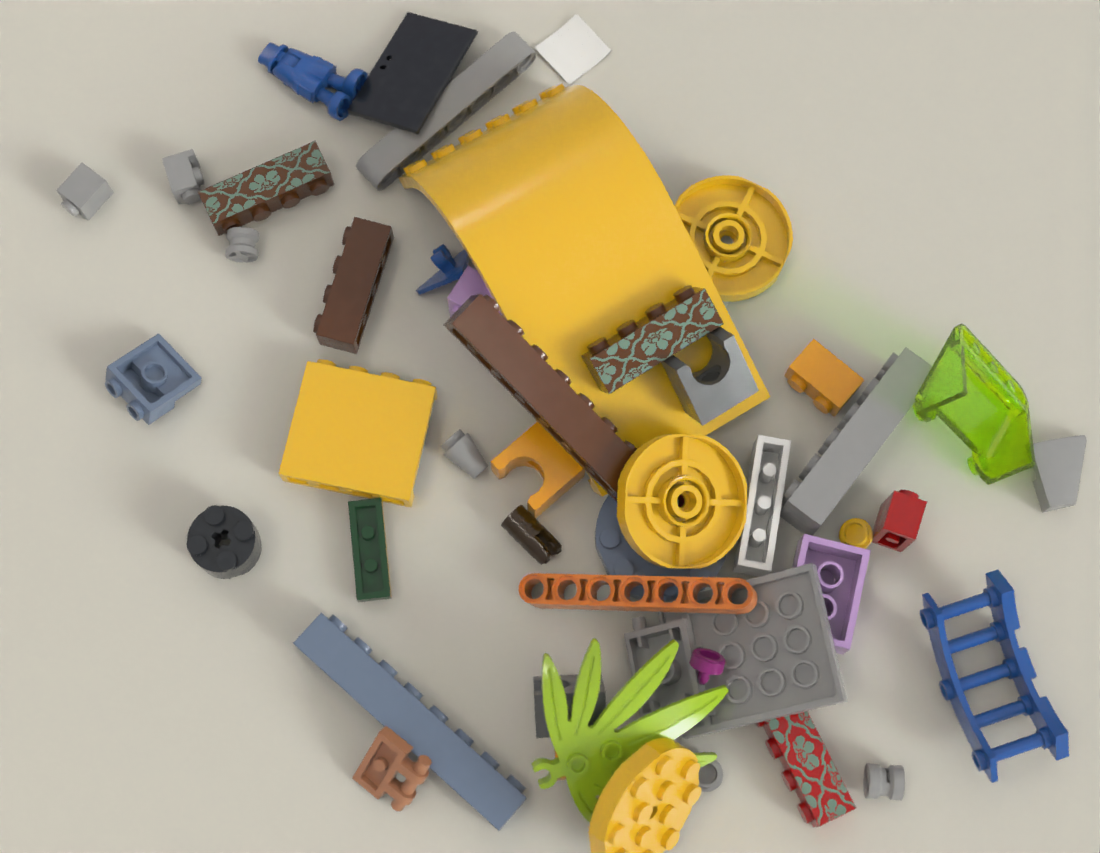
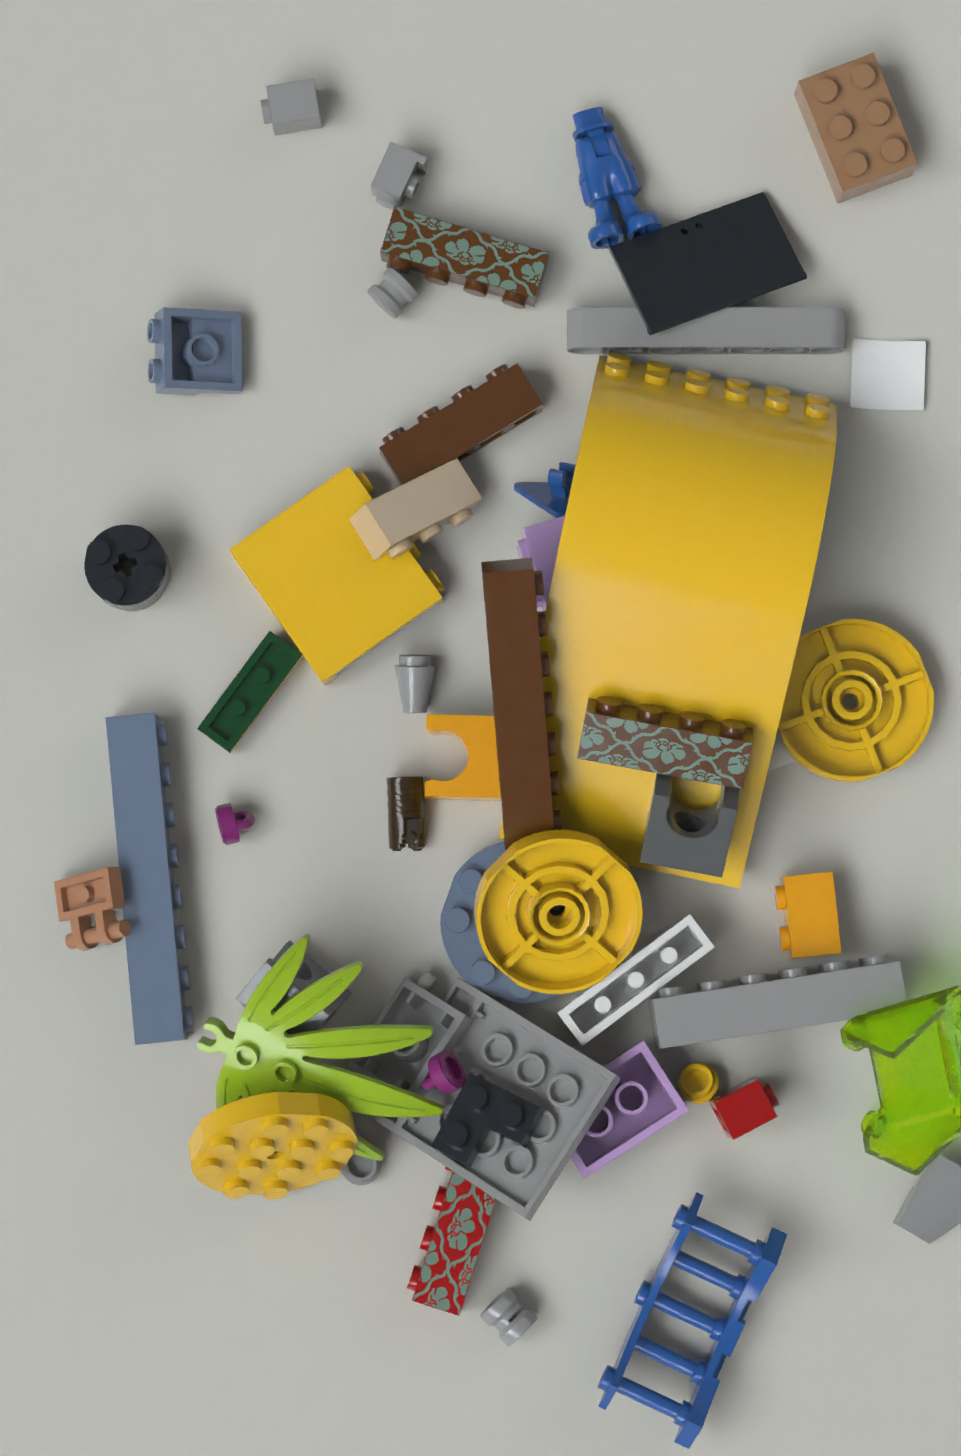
camera: 45 degrees right, 10 degrees up
(372, 350) = (416, 511): none -> tan brick
(430, 638) = (232, 822): none -> magenta tile
(651, 601) = (457, 968): orange beam -> none
(749, 667) = (483, 1109): none -> black plate

